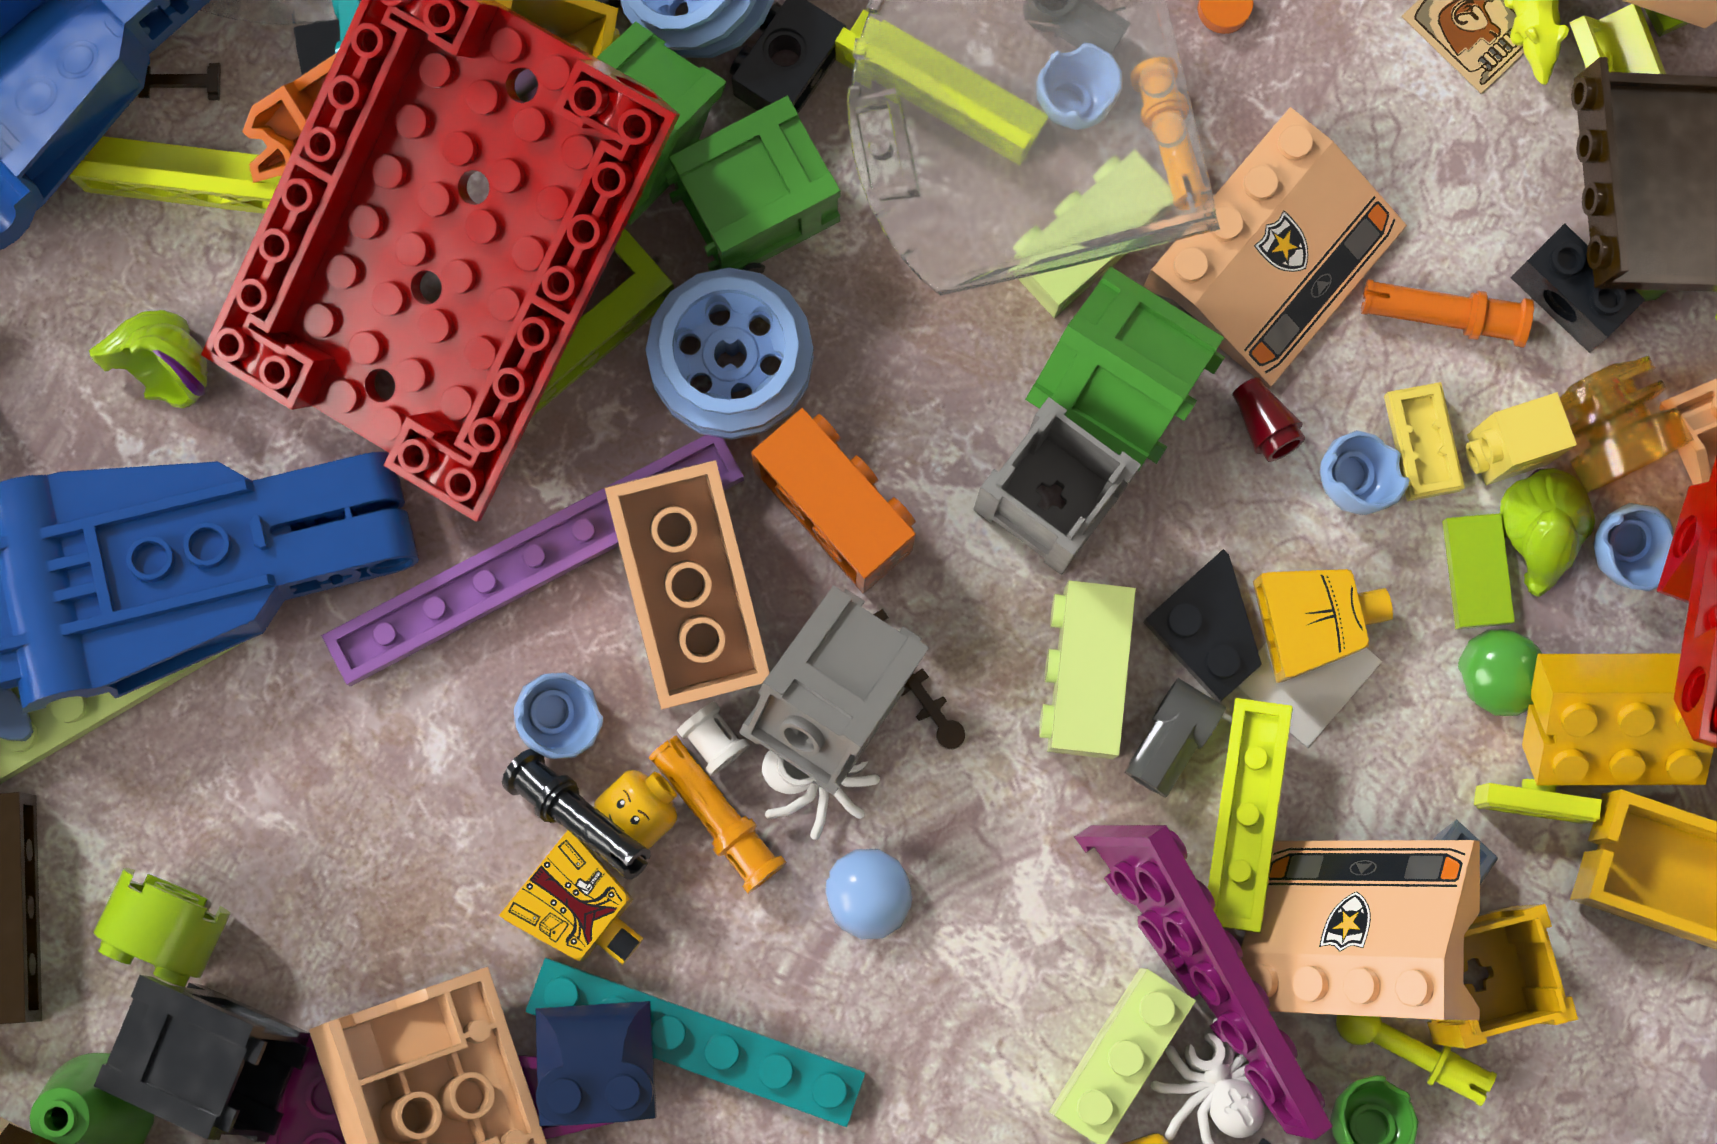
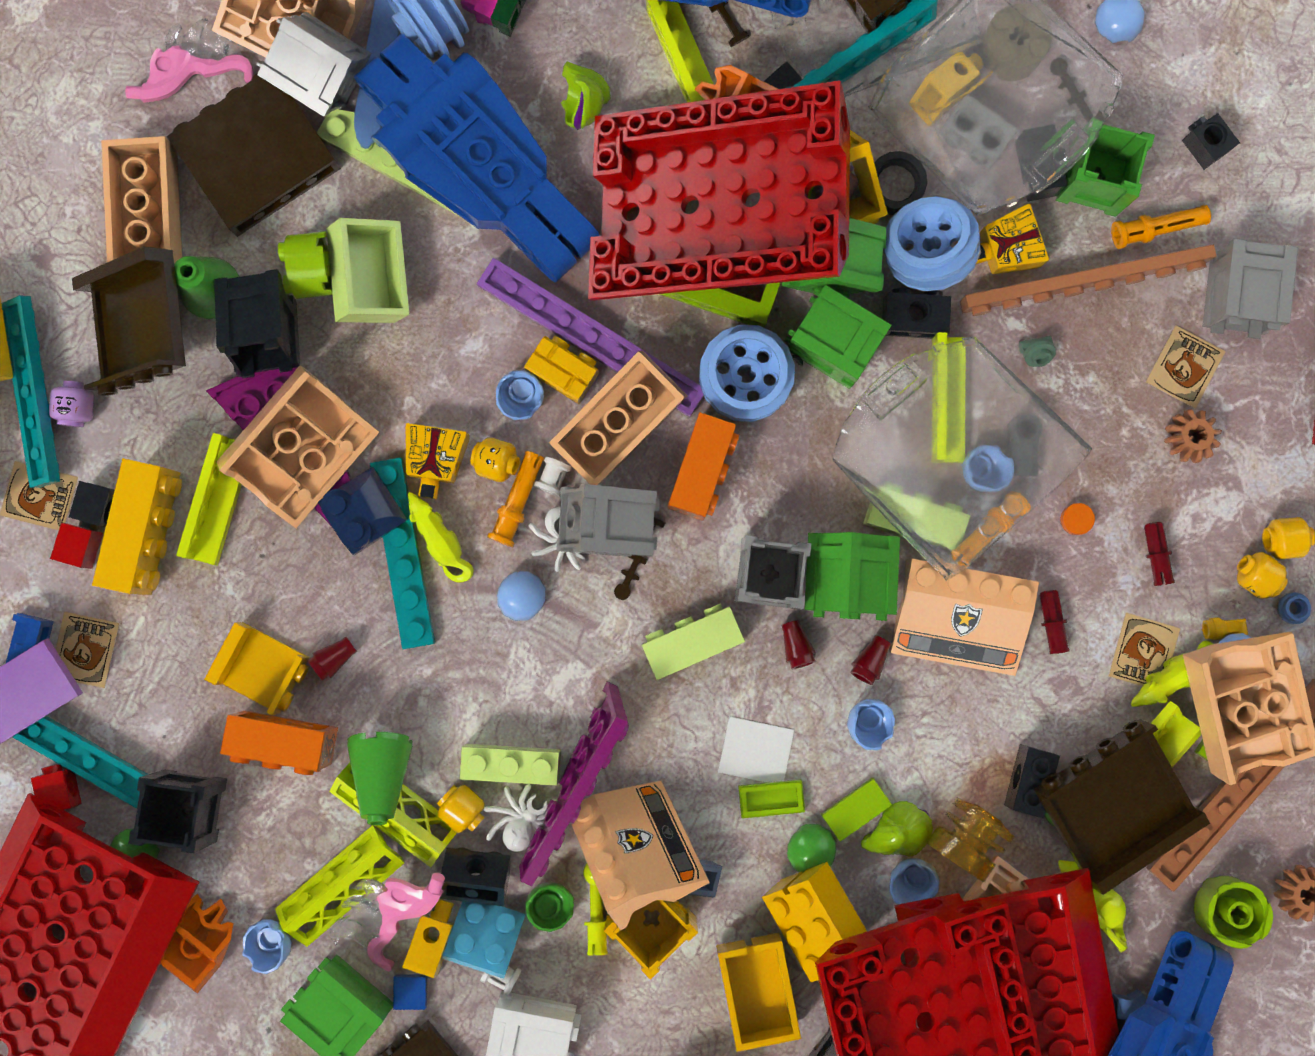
camera: 65 degrees right, 5 degrees up
(225, 839) = (367, 270): none -> yellowish green piece
(557, 627) = (562, 369): none -> yellow brick
(559, 801) = (478, 420): black pin -> none
(715, 970) = (440, 542): none -> neon yellow animal
(1180, 727) = (691, 703): dark grey piece -> none
(1183, 516) = (798, 648): none -> dark red cone
(1209, 628) = (748, 690): black wing -> none
(1249, 812) = (663, 760): neon yellow fence -> none
(1316, 618) = (783, 741): yellow torso -> none
(1359, 124) = (1054, 622): none -> dark red axle
(1392, 689) = (771, 798): none -> lime tile
(1425, 441) = (906, 745): light yellow plate -> none
(1473, 314) = (987, 735): orange pin -> none
(1520, 439) = (933, 793): light yellow brick -> none
(1537, 802) = (754, 902): neon yellow plate -> none

